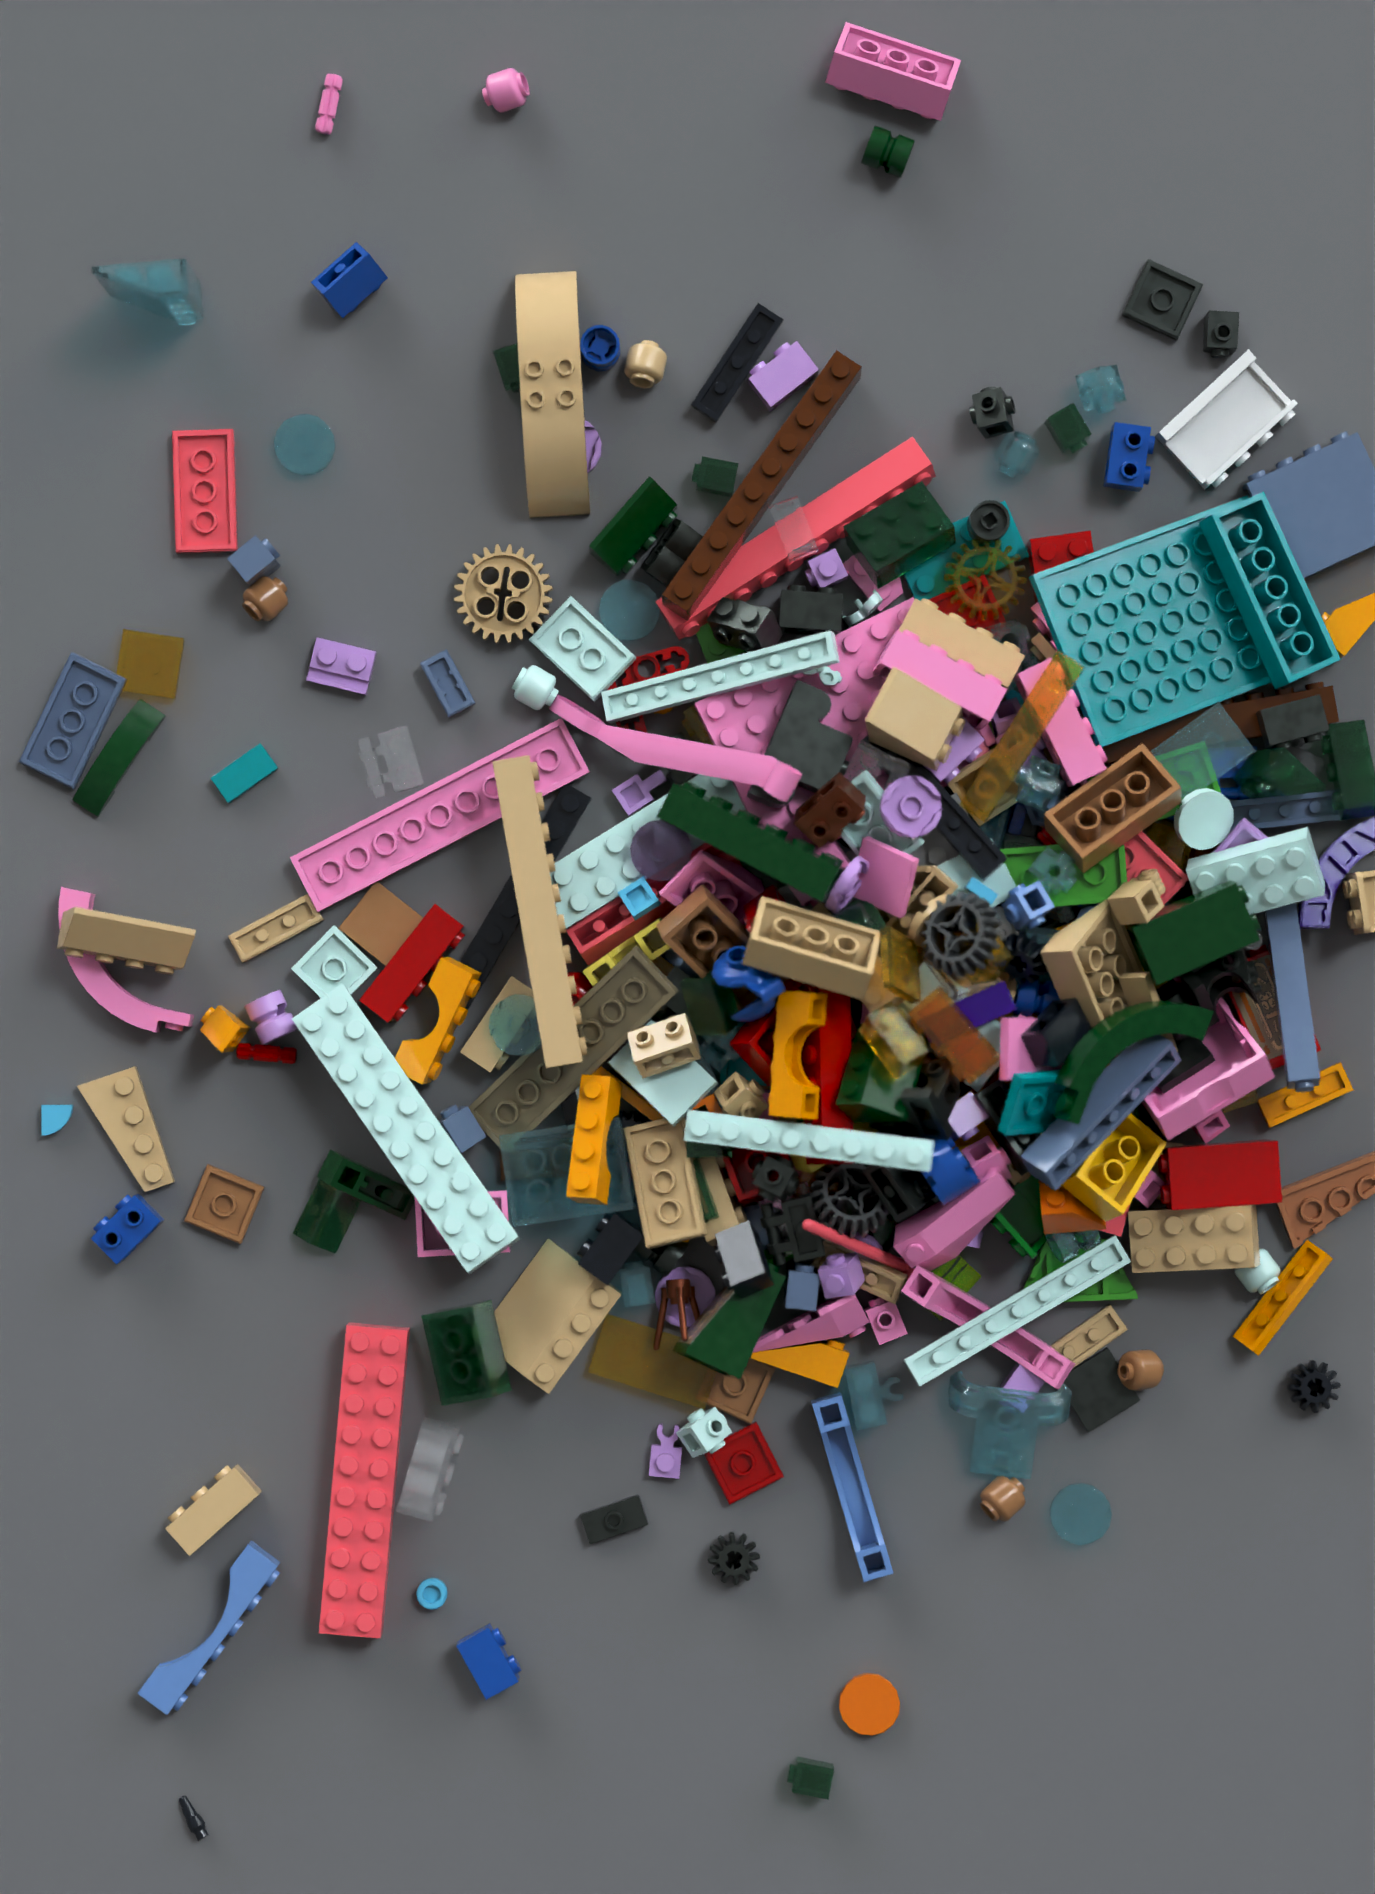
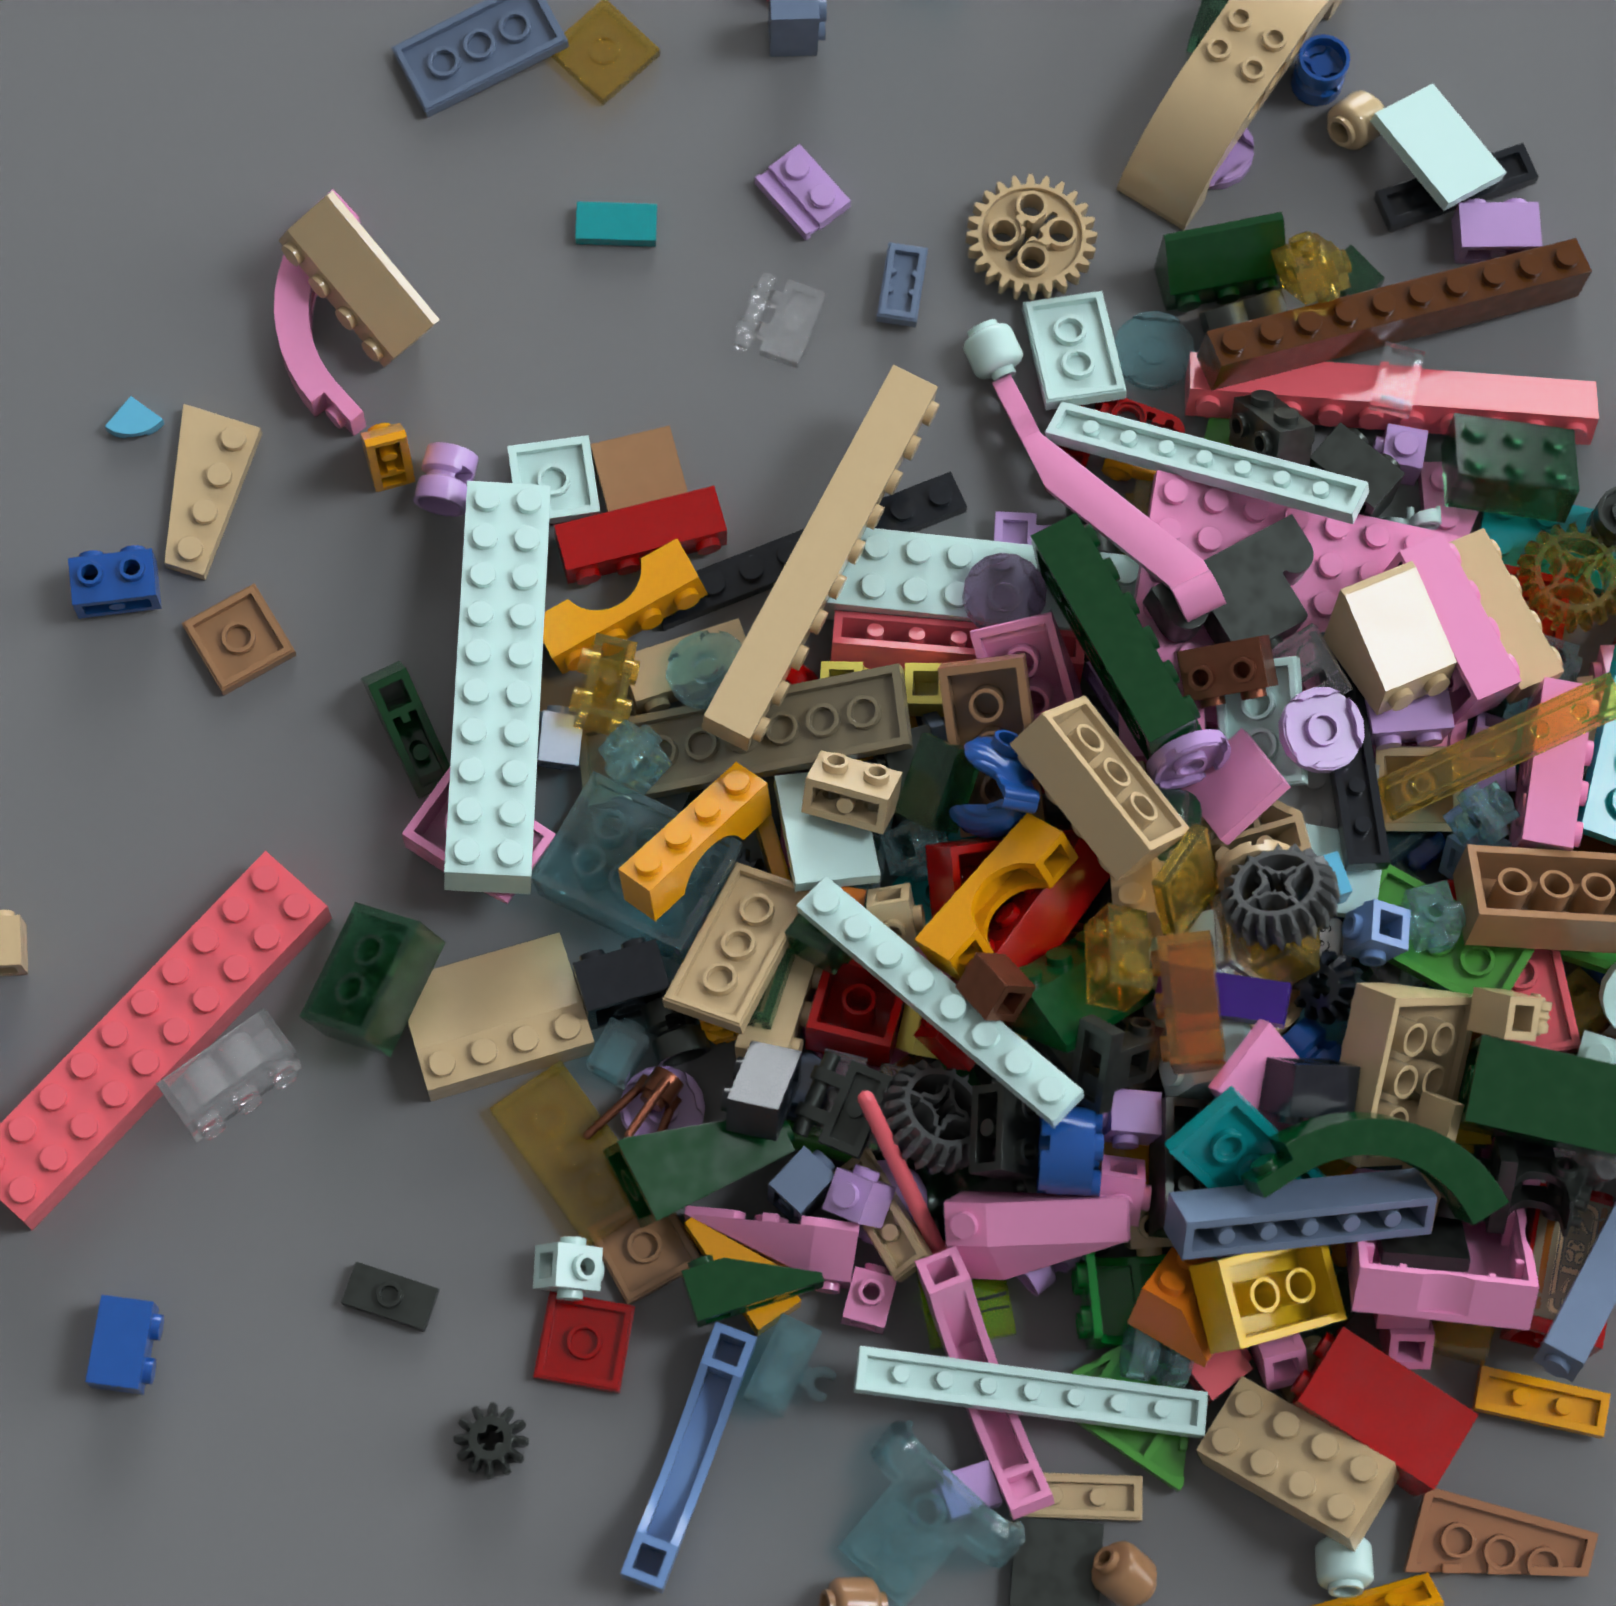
camera: 40 degrees right, 15 degrees down
(117, 757) = (494, 112): dark green slope -> none
(265, 599) = (775, 68): medium nougat head -> none
(266, 1053) = (410, 517): red axle -> none
(275, 928) = (524, 399): tan tile -> none
(326, 1217) = (339, 731): clear green panel -> none
(430, 819) = (772, 405): bright pink plate -> none
(432, 1593) = (121, 1226): medium azure tile -> none
(467, 1081) = (607, 675): none -> clear yellow brick
(518, 1112) = (634, 756): none -> clear light blue brick
(639, 898) = (942, 628): medium azure plate -> none
(665, 1458) = (502, 1270): lavender plate -> none
(694, 500) = (1312, 268): none -> clear yellow brick
(709, 349) = (1438, 147): none -> light aqua tile
(784, 1186) = (867, 1023): pearl dark grey brick -> none
(809, 1376) = (735, 1286): none -> dark green slope
(826, 675) = (1325, 544): light aqua piece -> none
(837, 1113) = (995, 987): none -> copper brick

